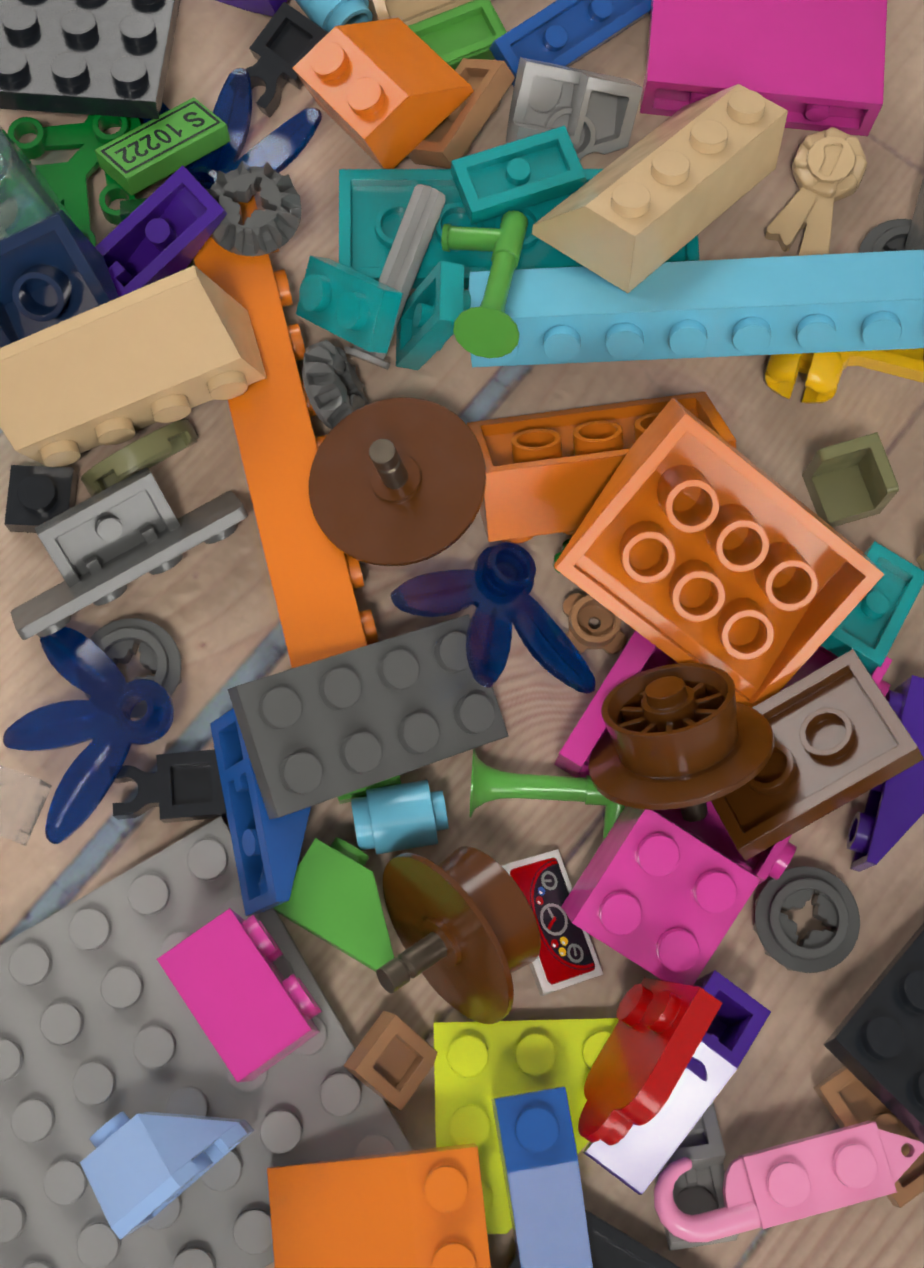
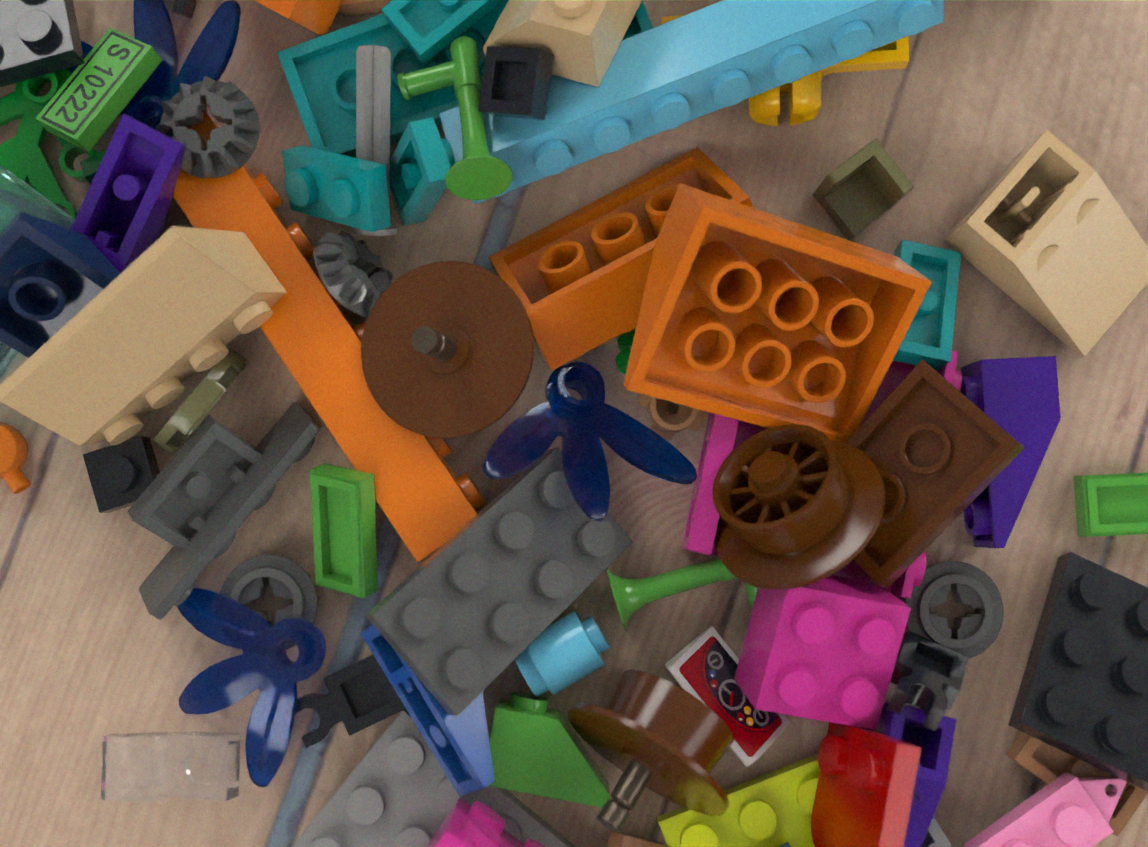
camera: 15 degrees left, 10 degrees up
(232, 619) = (344, 530): none -> bright green tile
(552, 262) = (516, 82): none -> black plate
(755, 963) = (926, 677): none -> black plate

